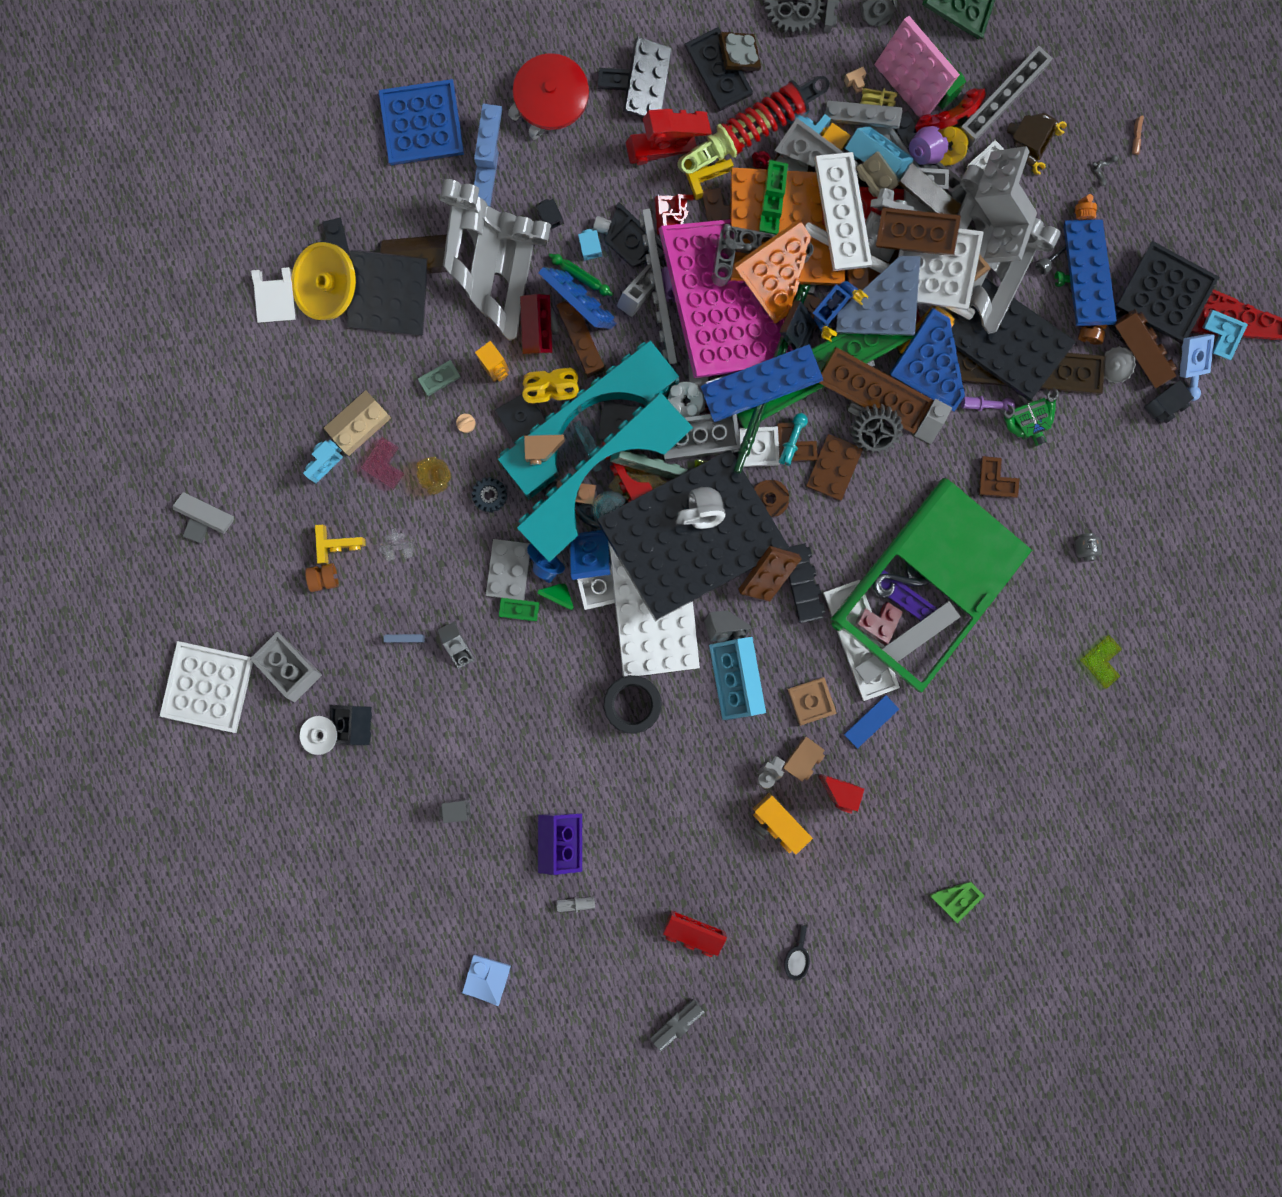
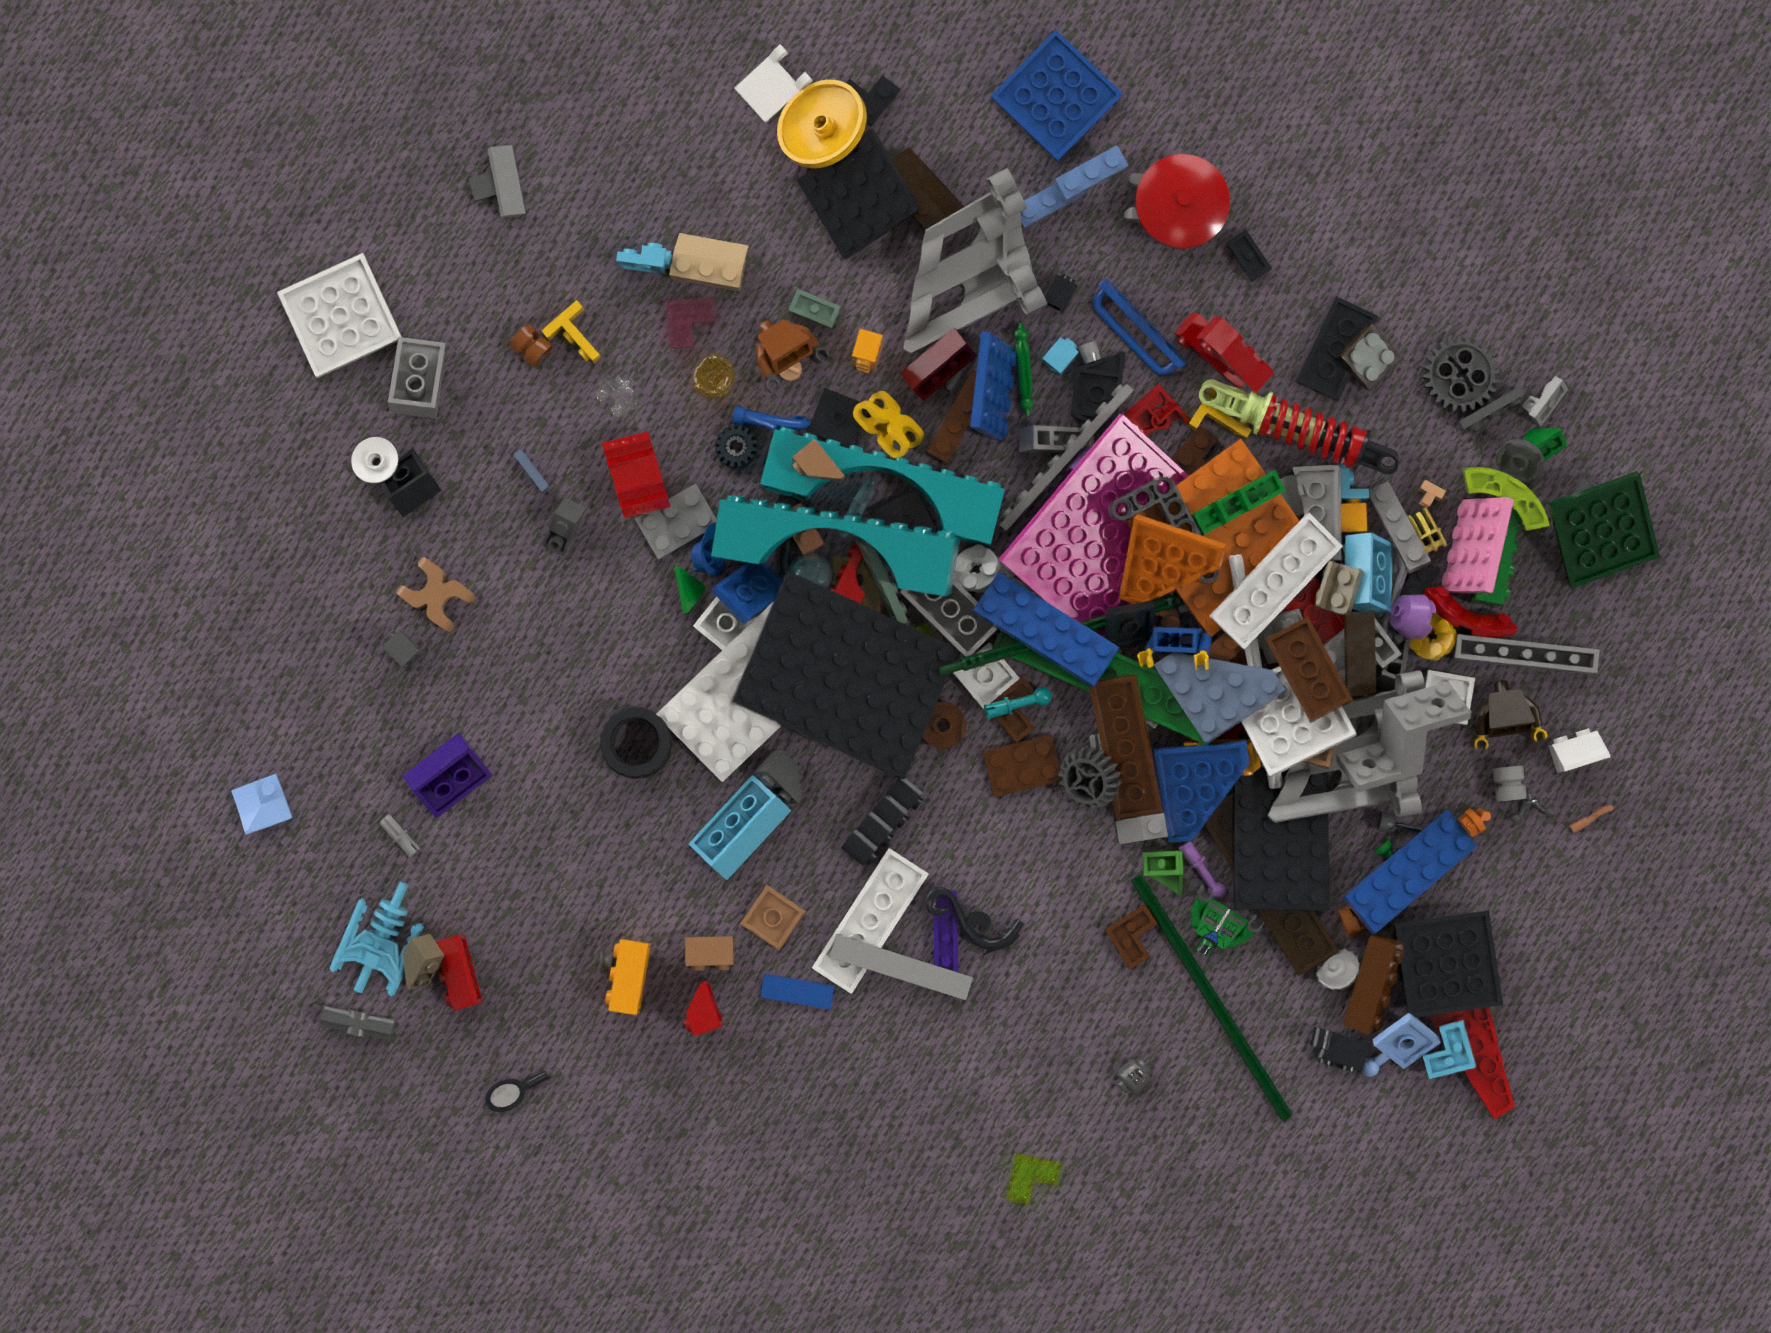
camera: 50 degrees right, 0 degrees up
(436, 761) = (435, 594): none -> medium nougat piece
(448, 415) = (783, 347): none -> dark orange torso
(458, 572) = (636, 474): none -> red slope
(473, 475) = (744, 416): none -> blue plant
(519, 609) = (645, 561): green plate -> none
(610, 195) = (1141, 321): none -> blue piece
(637, 974) = (375, 947): none -> medium azure bar
(646, 77) = (1270, 286): plate -> none
(669, 952) = (421, 961): none -> dark tan slope
(704, 509) = (877, 667): light grey piece -> none
(731, 243) = (1154, 497): dark grey piece -> none
(760, 156) = (1276, 460): dark red plate -> none
(769, 573) = (864, 780): reddish brown plate -> none
(770, 773) = (670, 928): light grey hips -> none
(880, 626) = (898, 931): plate -> none
(885, 199) = (1317, 615): light grey hinge -> none
(886, 26) = (1503, 485): none -> lime window
(958, 552) = (1028, 948): green door -> none
(958, 899) = (686, 1207): bright green wing -> none
(970, 425) = (1165, 868): none -> bright green slope
(1073, 459) = (1211, 997): none -> dark green axle
(1079, 168) = (1509, 783): none -> light grey wheel
(1091, 109) = (1578, 751): none -> white slope

